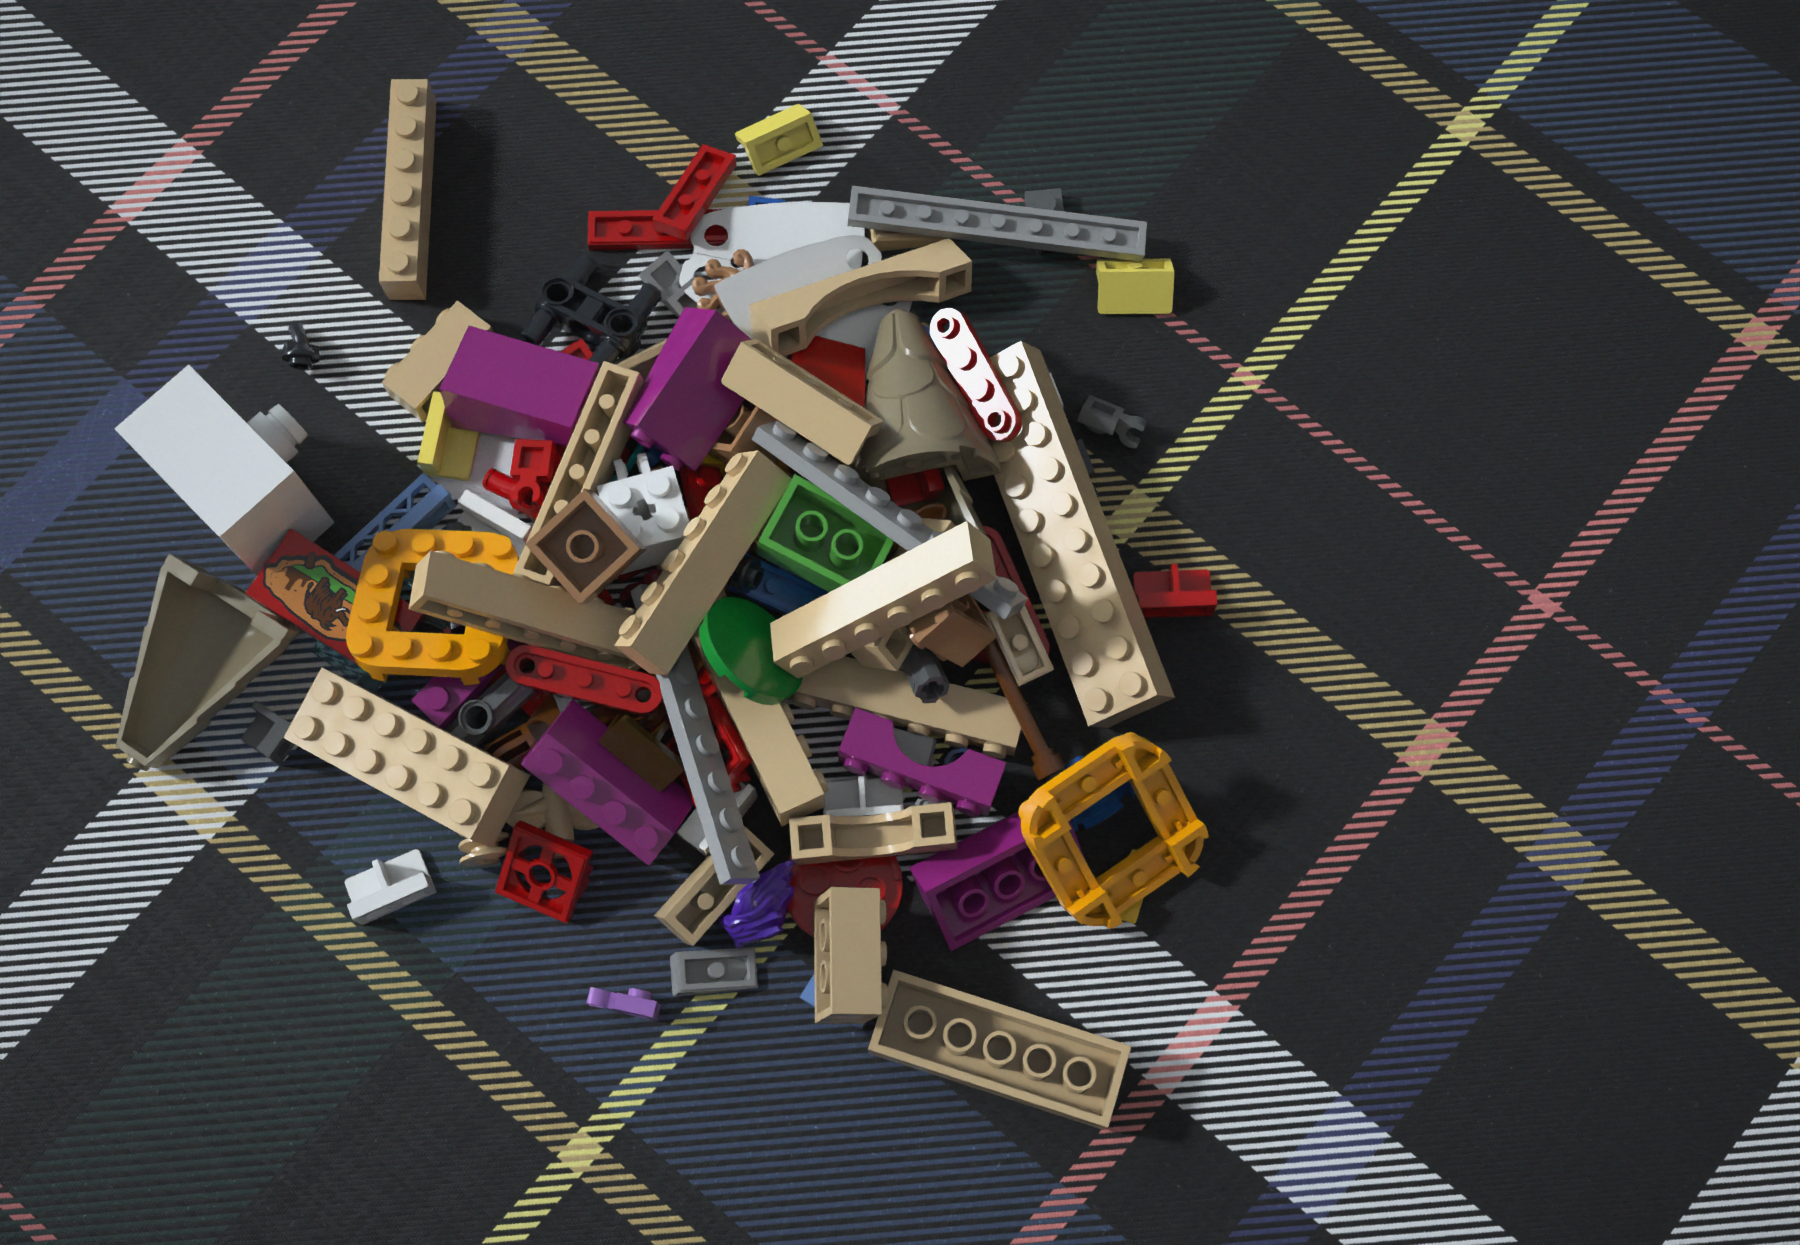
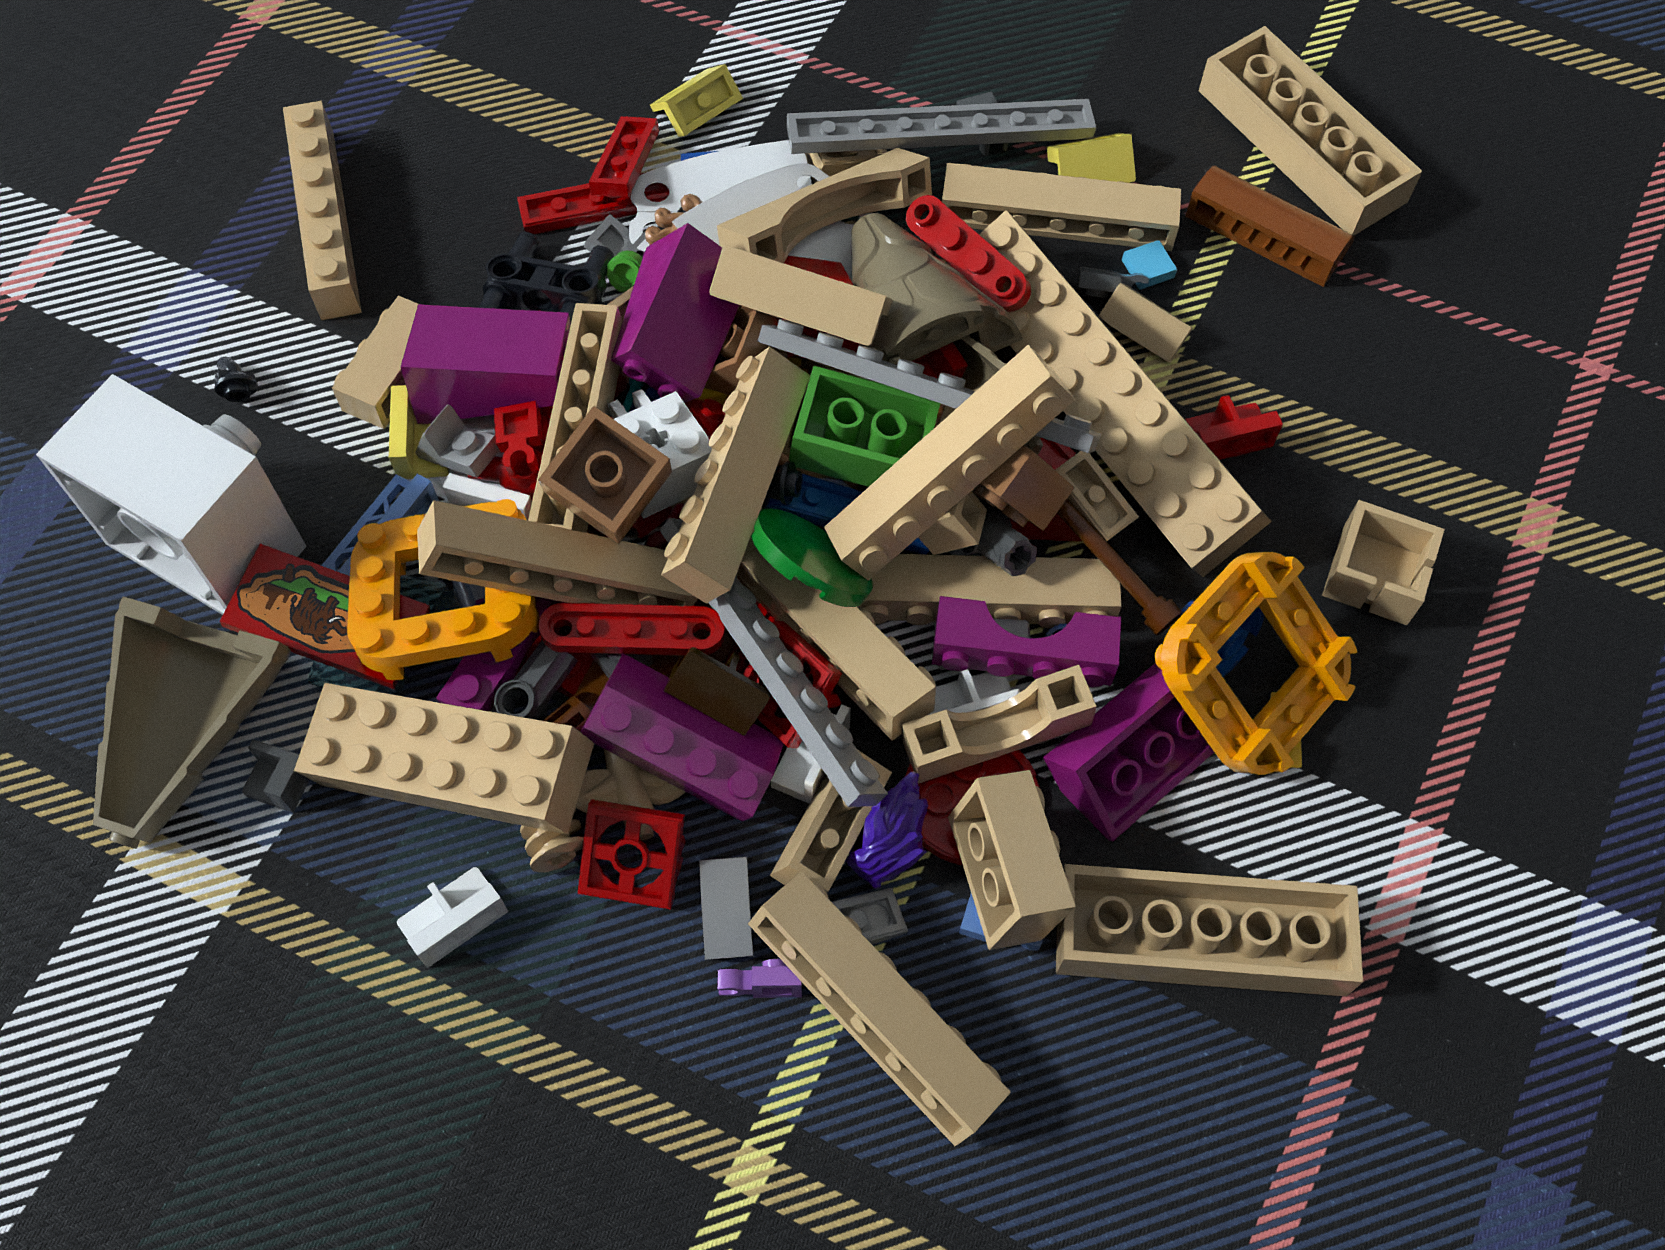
camera: 15 degrees left, 10 degrees down
(480, 463) = (456, 445): none -> light grey slope
(612, 933) = (725, 908): none -> light grey slope
(666, 312) = (623, 270): none -> bright green tile
(710, 1051) = (880, 1008): none -> tan brick
(1087, 329) = (1064, 205): none -> tan brick
(1129, 468) = (1145, 322): none -> tan slope
(1156, 405) = (1151, 261): none -> medium azure tile
(1262, 756) = (1380, 560): none -> tan piece
(1281, 389) = (1268, 225): none -> dark orange brick
(1348, 300) = (1309, 131): none -> tan brick

